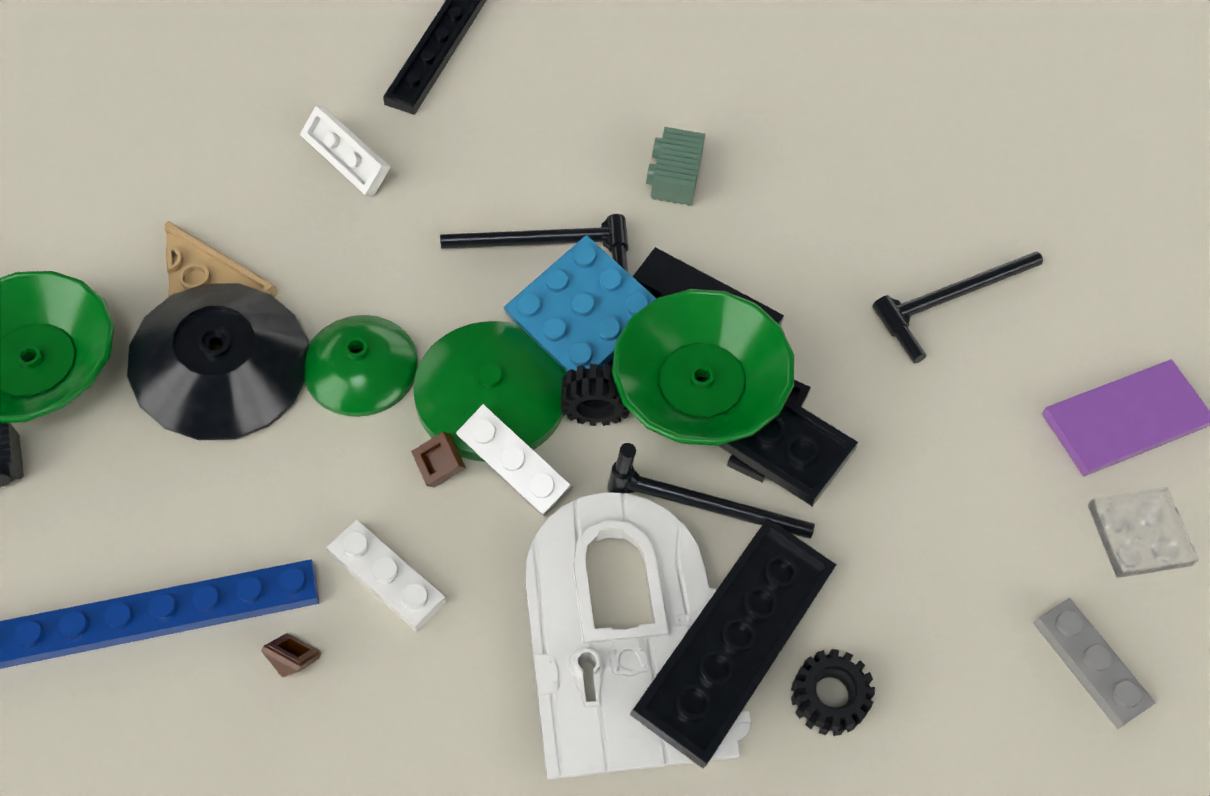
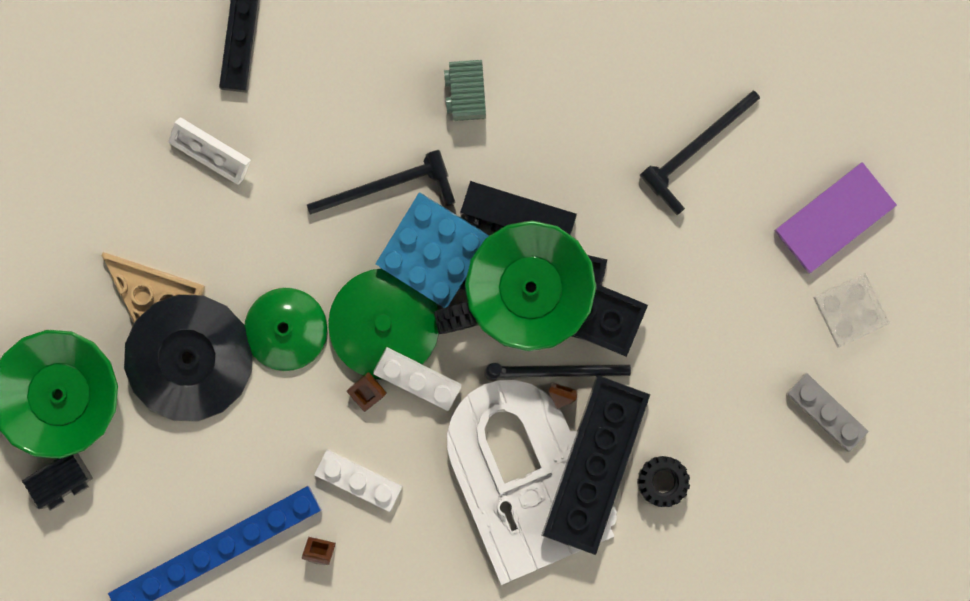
camera: 10 degrees left, 25 degrees up
(709, 533) = (562, 395): none -> reddish brown slope

